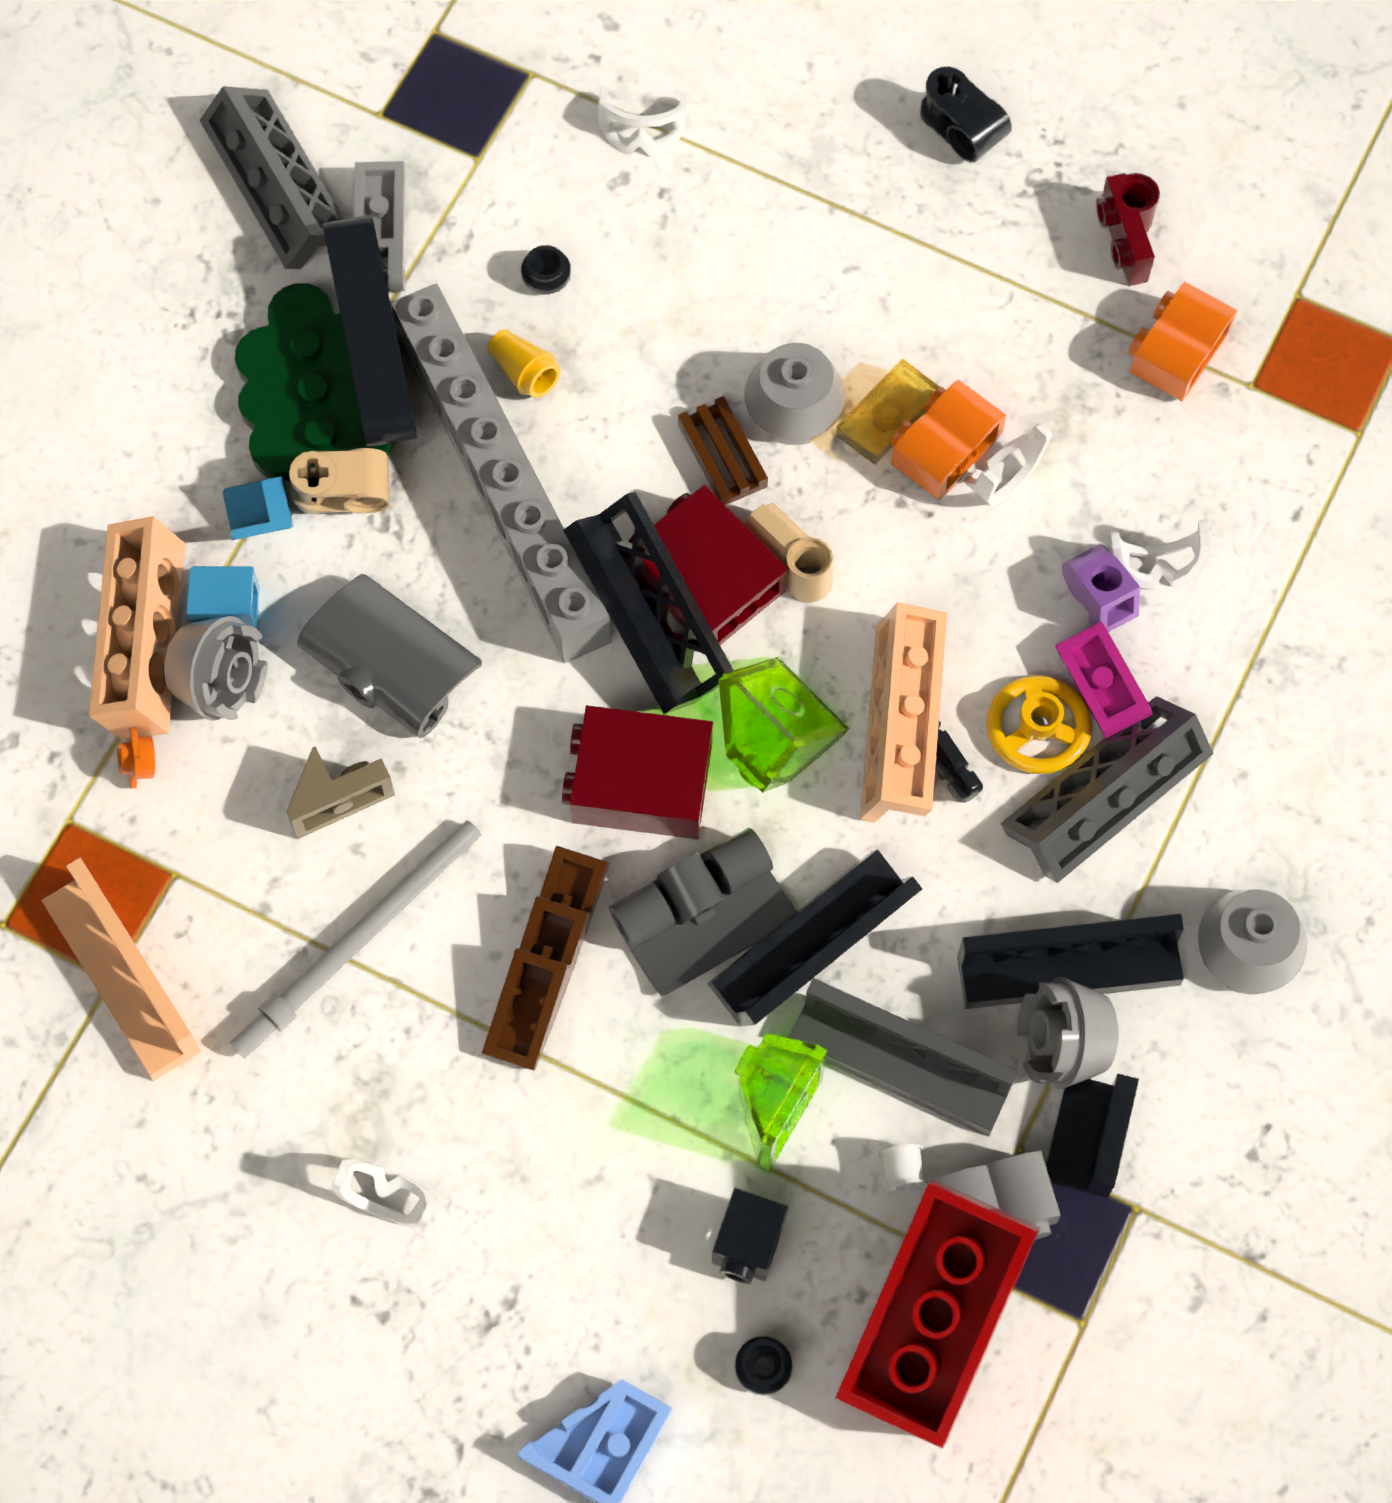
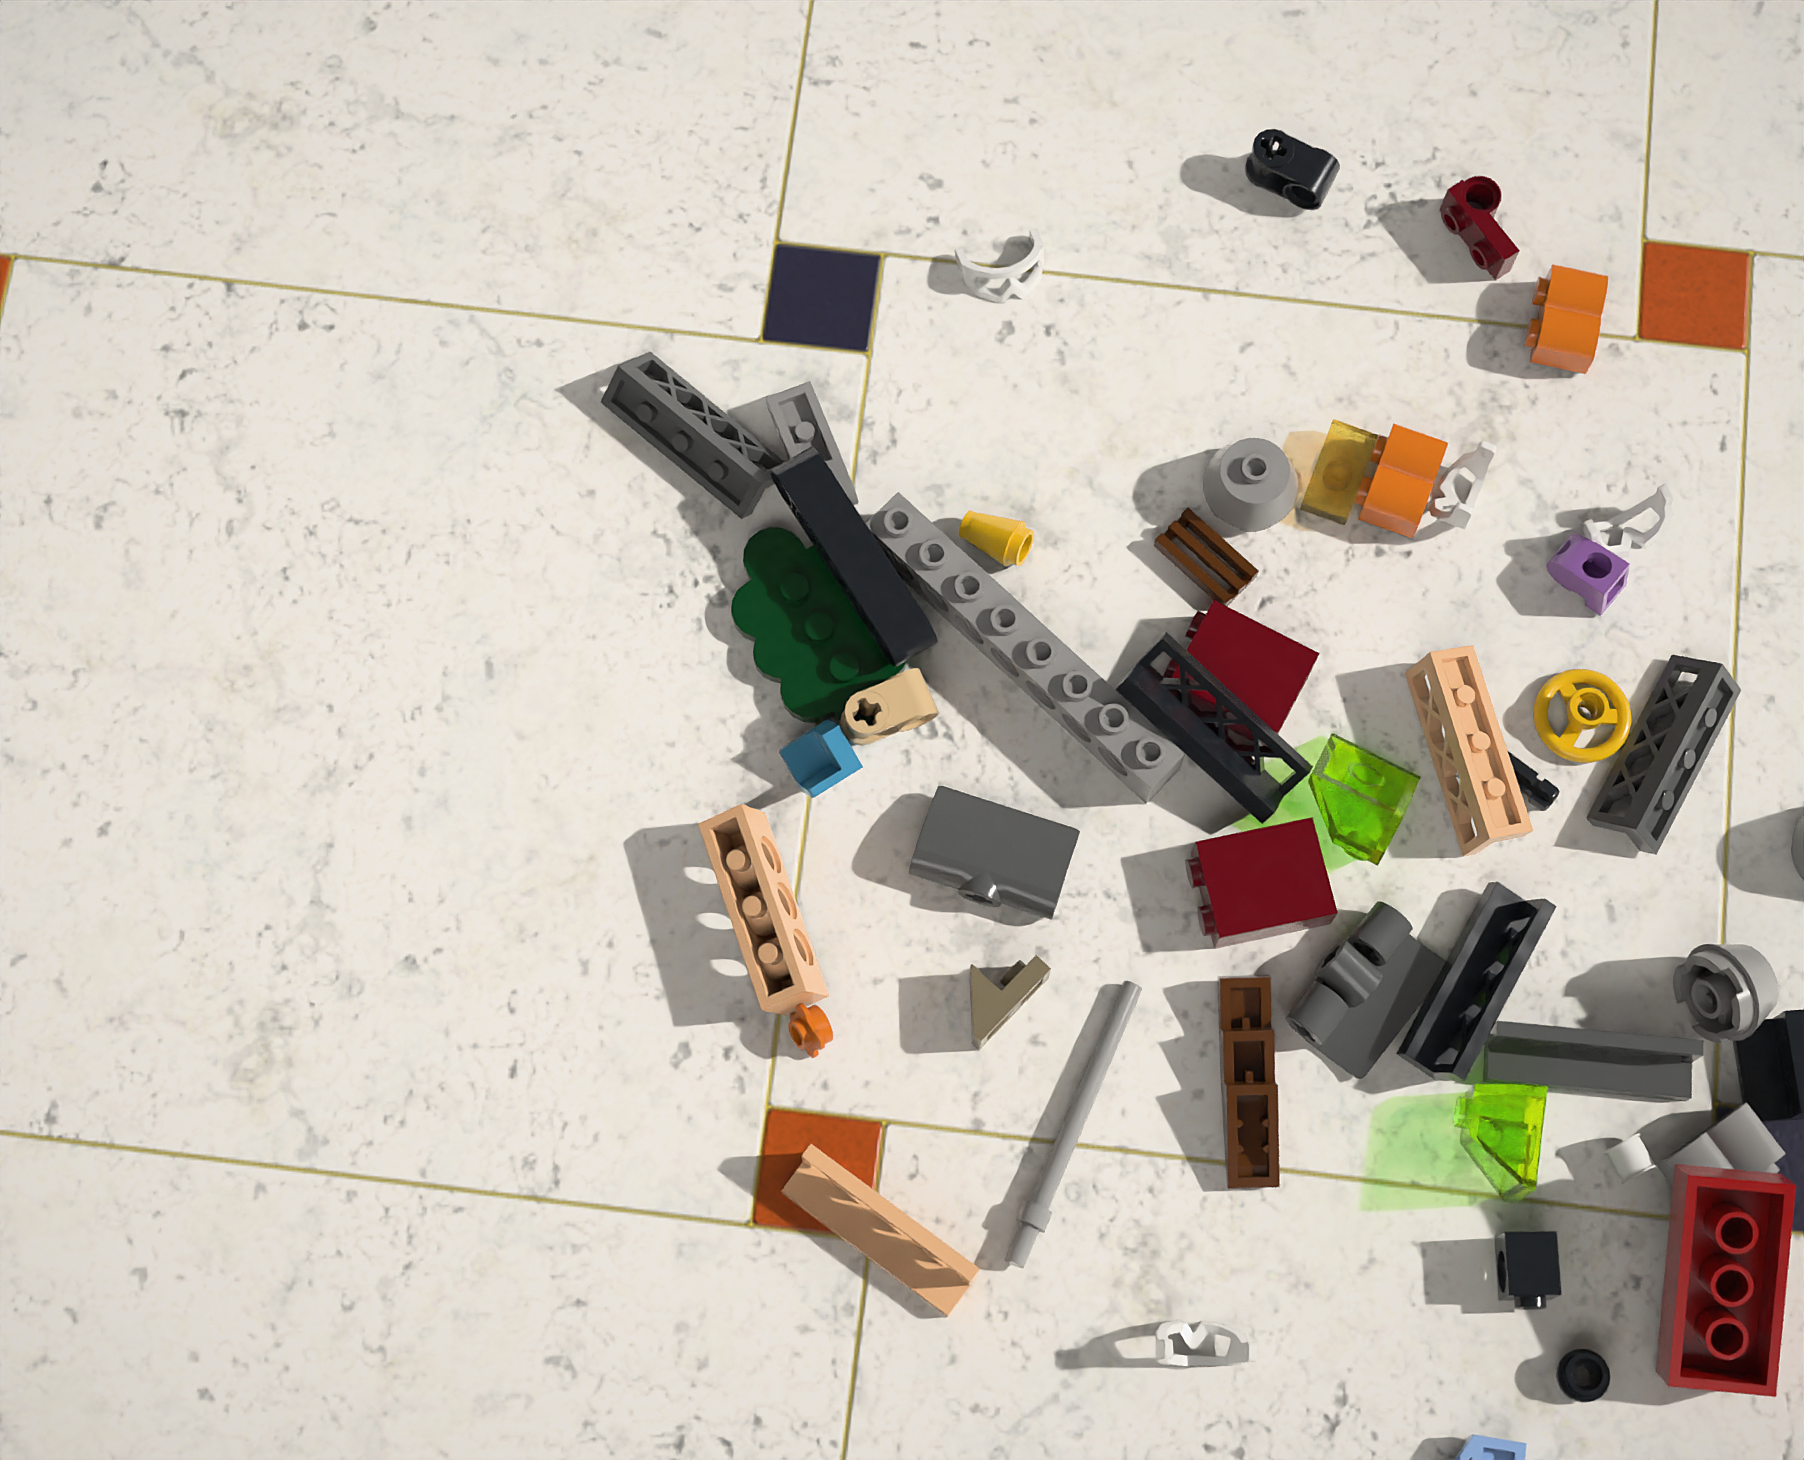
camera: 20 degrees left, 5 degrees up
(215, 667) = (848, 922): light grey cone -> none
(223, 593) = (826, 855): dark azure panel -> none
(545, 270) = (978, 441): black plate -> none
(795, 551) = (1309, 629): tan piece -> none
(1096, 955) = (1702, 919): black fence -> none
(1103, 680) = (1625, 657): dark pink plate -> none

